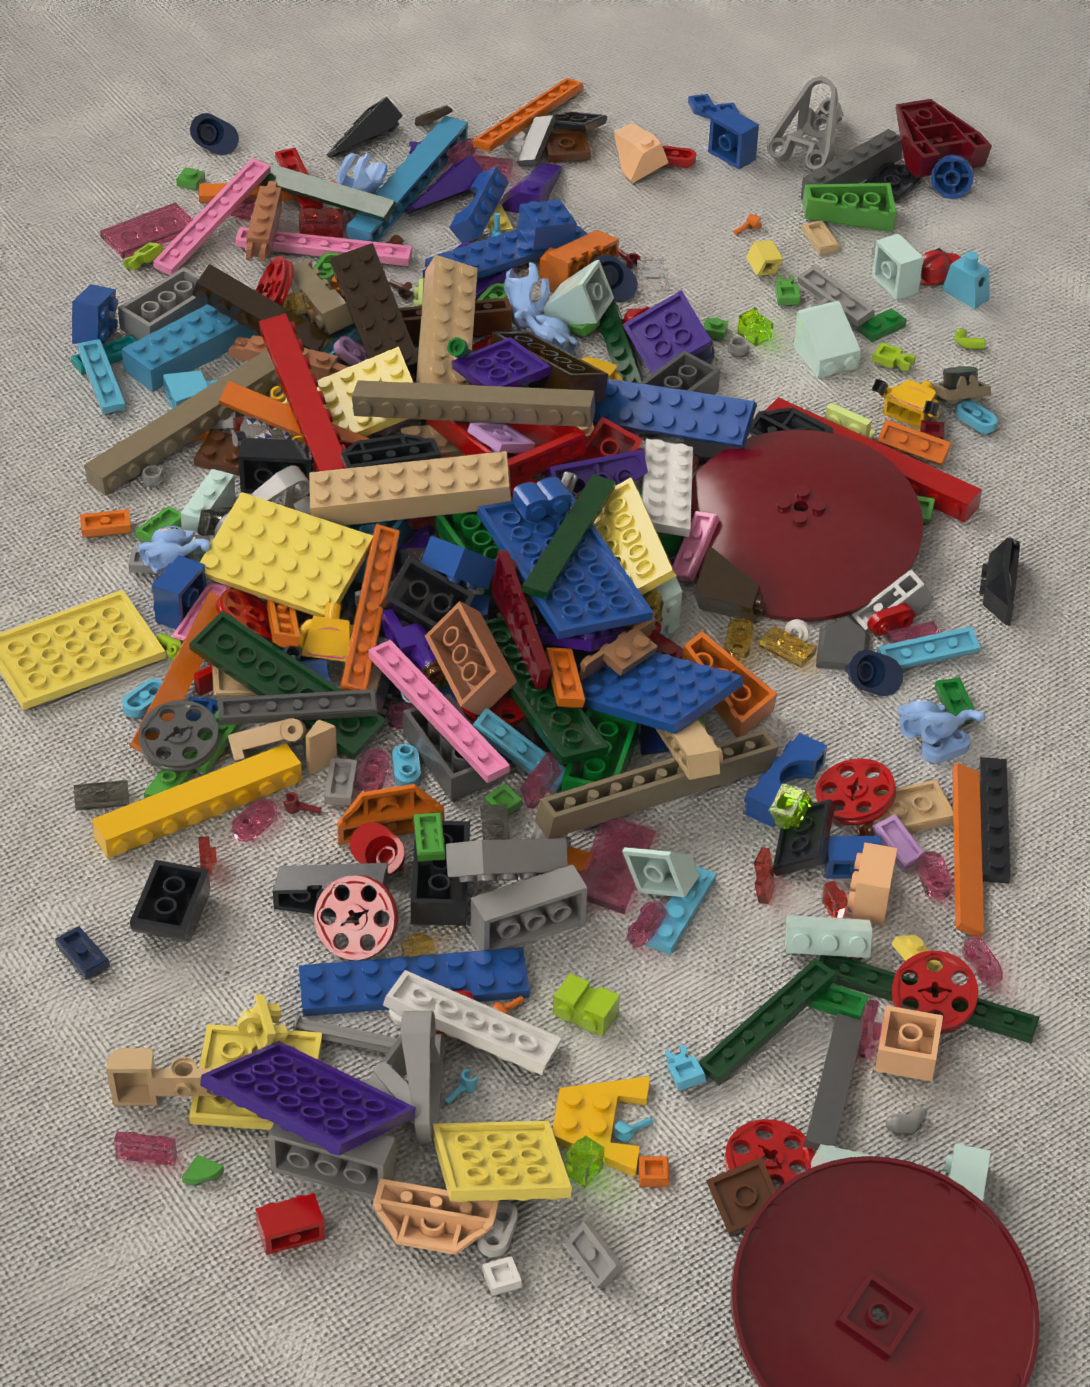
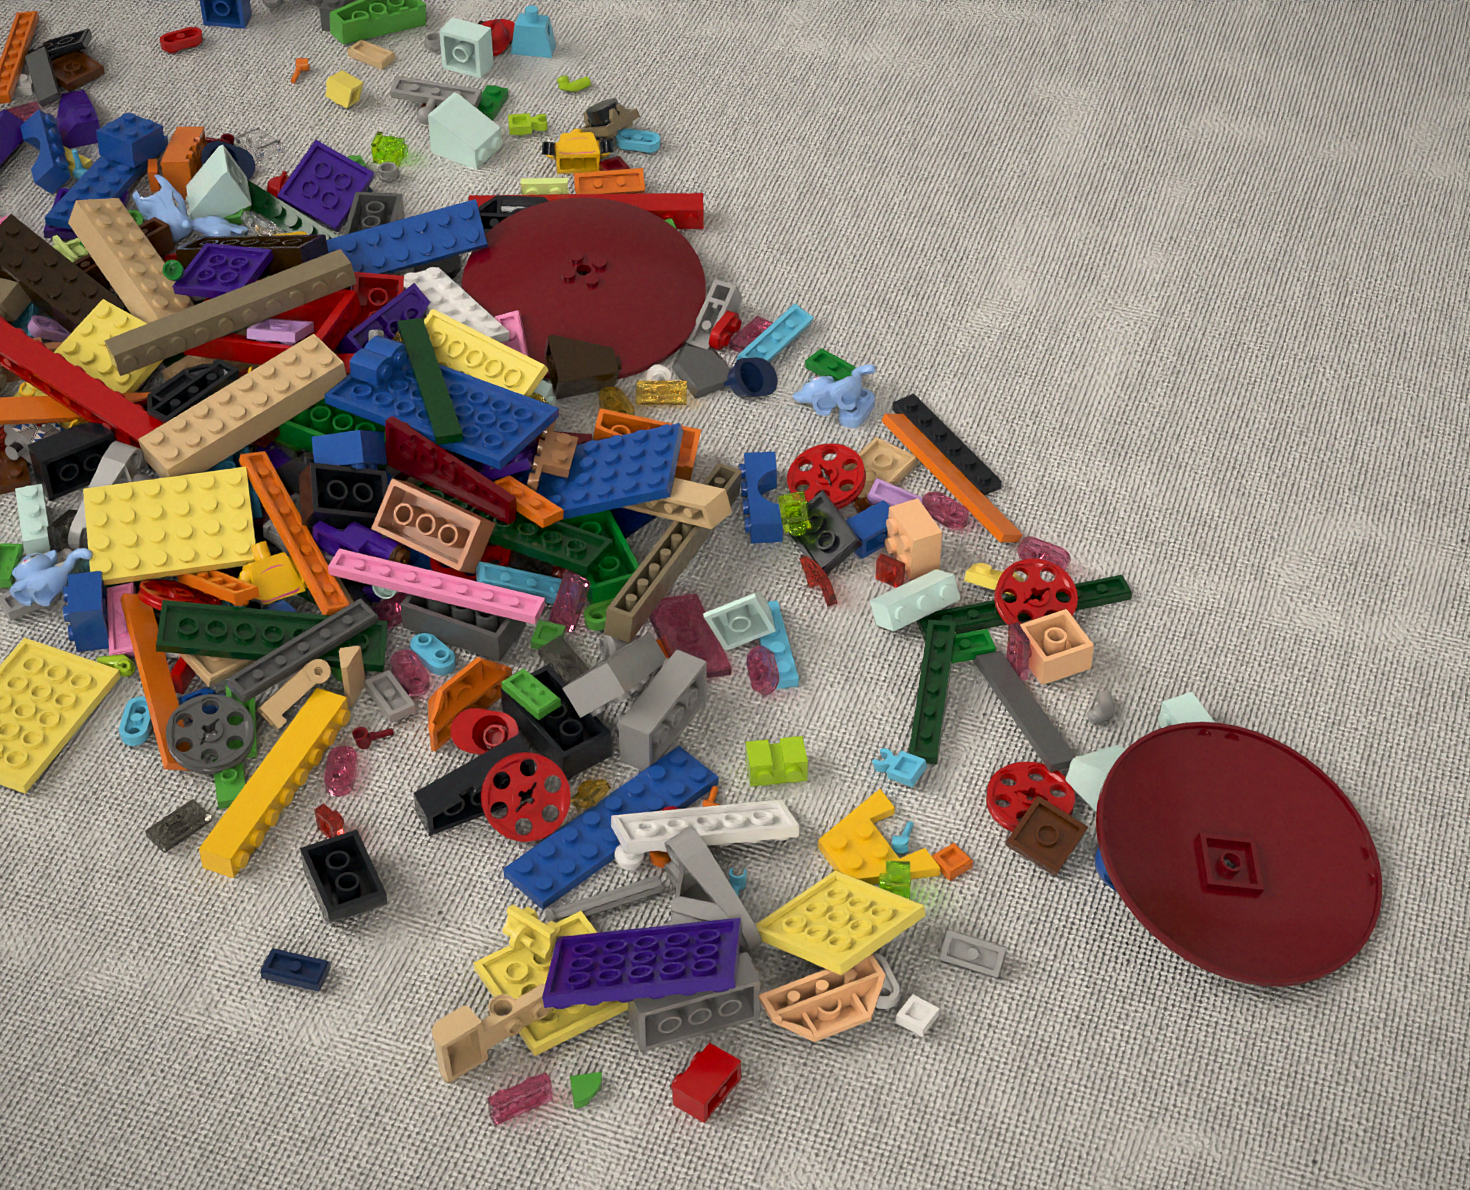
camera: 35 degrees left, 0 degrees up
(591, 344) = (260, 225): none -> clear wing
(638, 152) = (146, 46): light nougat wedge -> none
(787, 292) = (387, 111): bright green plate -> none
(1000, 580) = (783, 258): black wedge -> none

